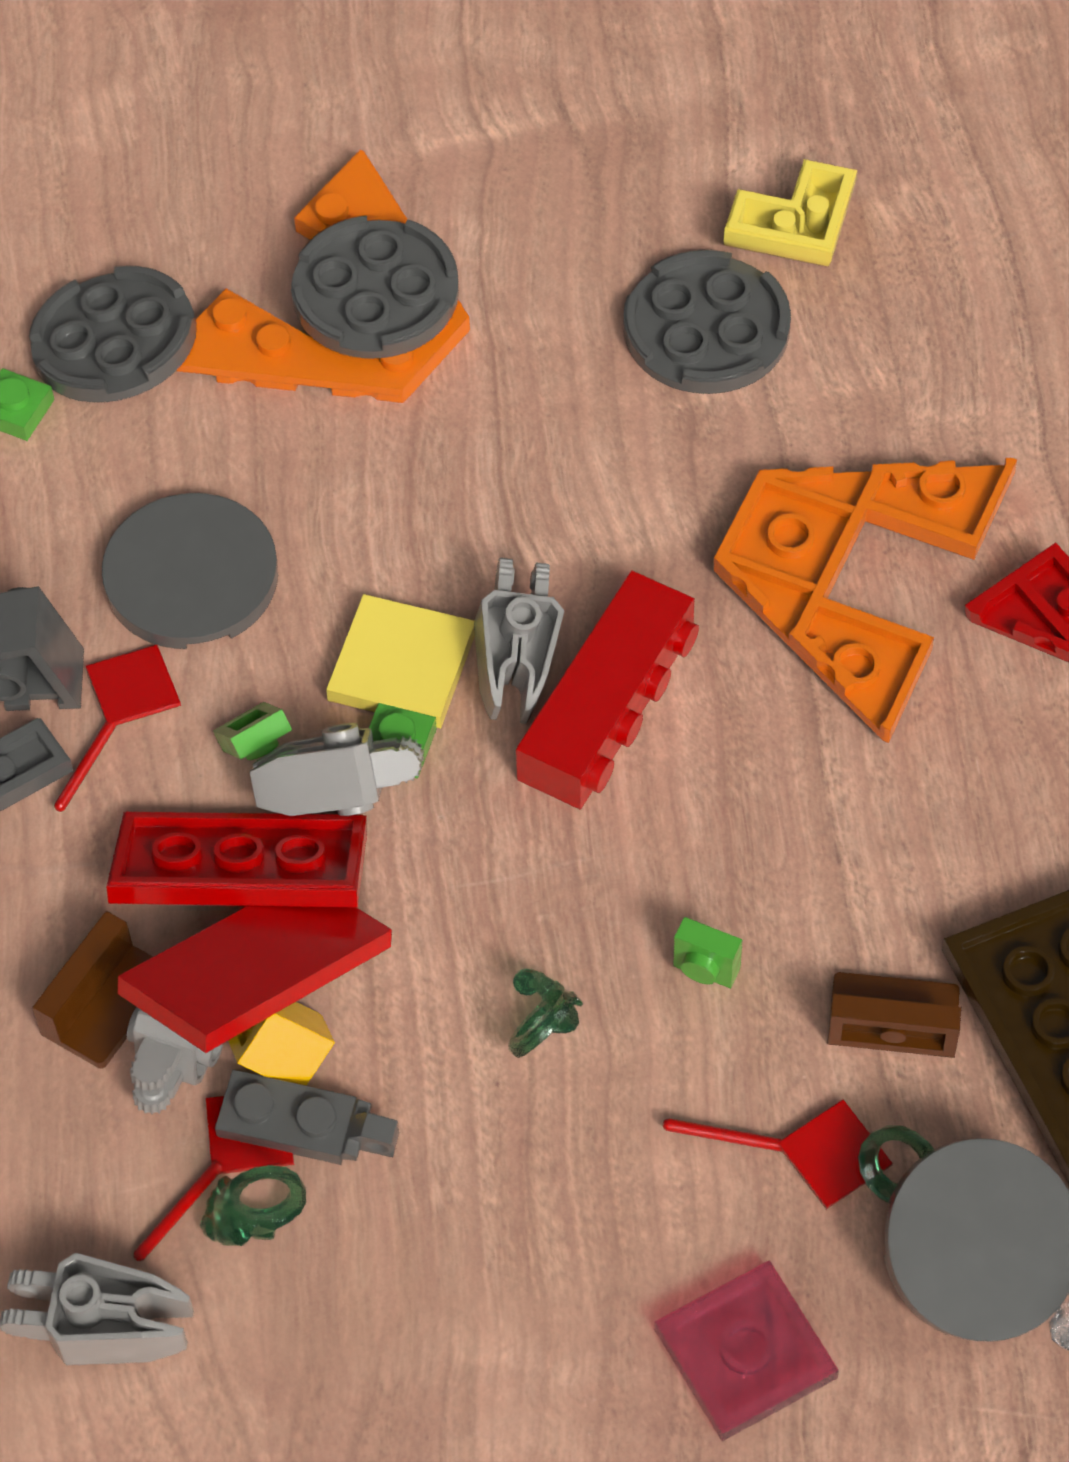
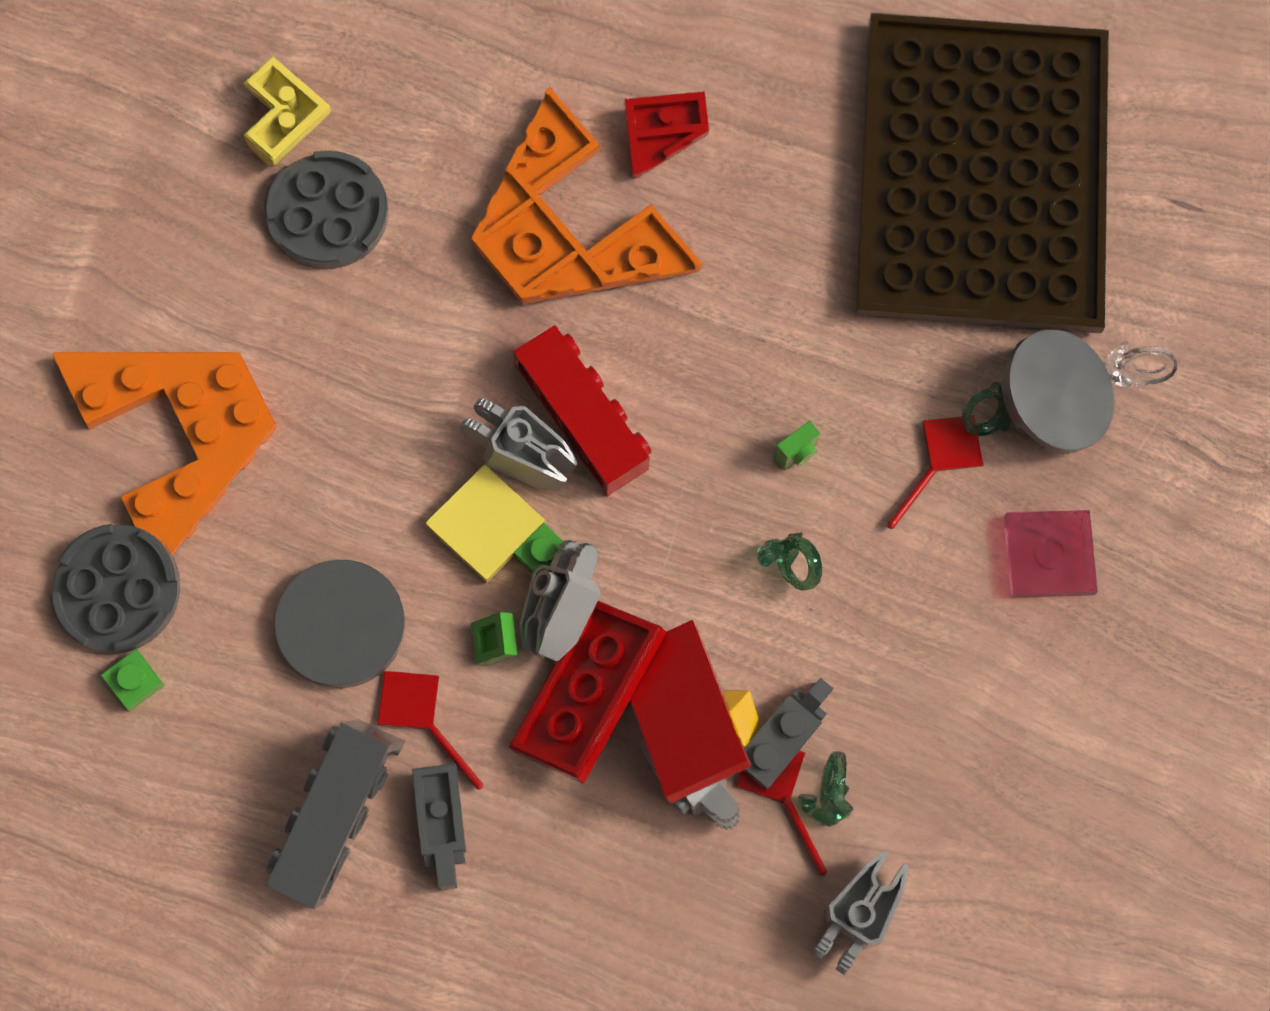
camera: 70 degrees left, 15 degrees up
(83, 1002) = (636, 816): reddish brown panel -> none
(375, 287) = (187, 399): dark grey tile -> none
(894, 1014) = (883, 362): reddish brown panel -> none

